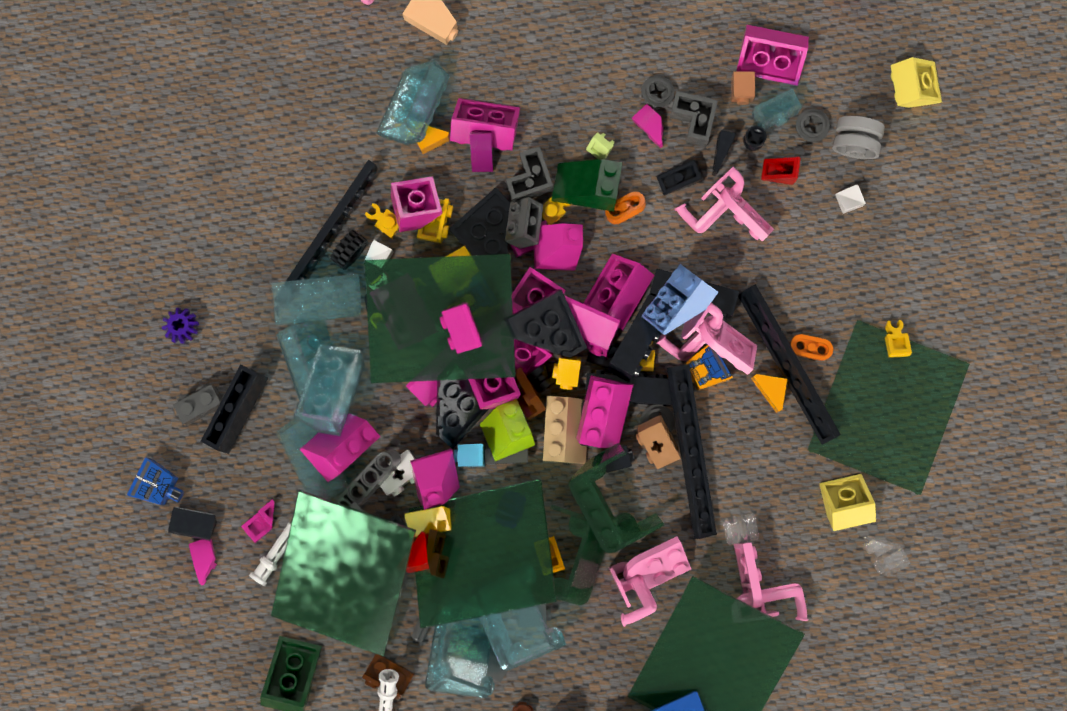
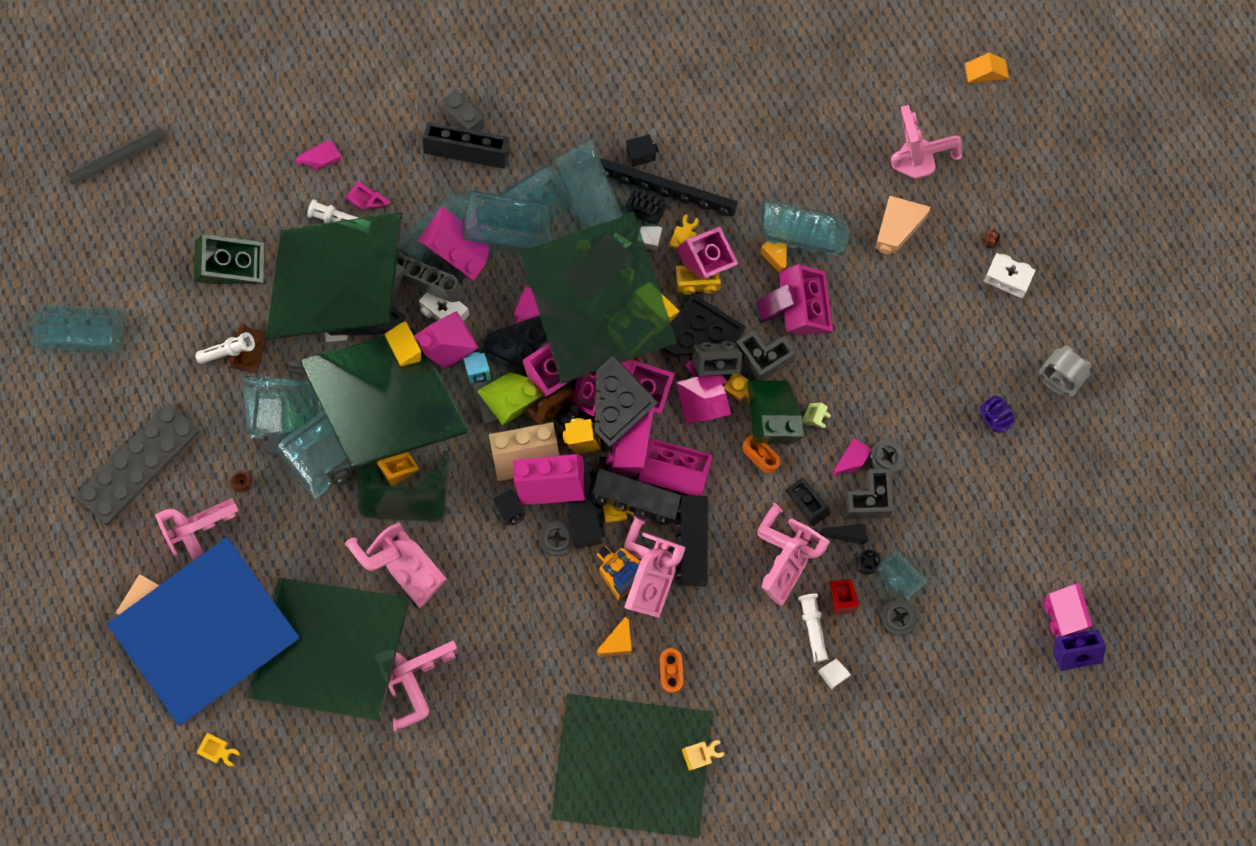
camera: 65 degrees right, 10 degrees down
(155, 484) = (379, 95): blue torso -> none
(182, 317) = (524, 78): dark purple gear -> none
(192, 523) = (350, 138): black slope -> none
(286, 238) = (641, 150): none -> black brick
(418, 557) = (370, 343): red slope -> none
(436, 561) = (377, 354): dark brown slope -> none
(461, 328) = (593, 316): dark pink slope -> none
(610, 531) = (452, 495): clear green windscreen -> none
(658, 431) = (535, 541): medium nougat brick -> none
(679, 301) = (678, 519): medium blue slope -> none
(691, 451) = (534, 575): black plate -> none
(740, 528) = (469, 641): clear wheel -> none
(743, 87) = (916, 537): nougat brick -> none
(773, 54) = (959, 558): dark pink slope -> none
(789, 364) = (650, 648): black plate -> none
(793, 204) = (812, 618): none -> white pin
(848, 502) = (523, 744): light yellow slope -> none
(858, 137) = (897, 661): light grey wheel -> none
(888, 555) = (481, 797): clear slope -> none
(915, 83) = (974, 711): light yellow slope -> none

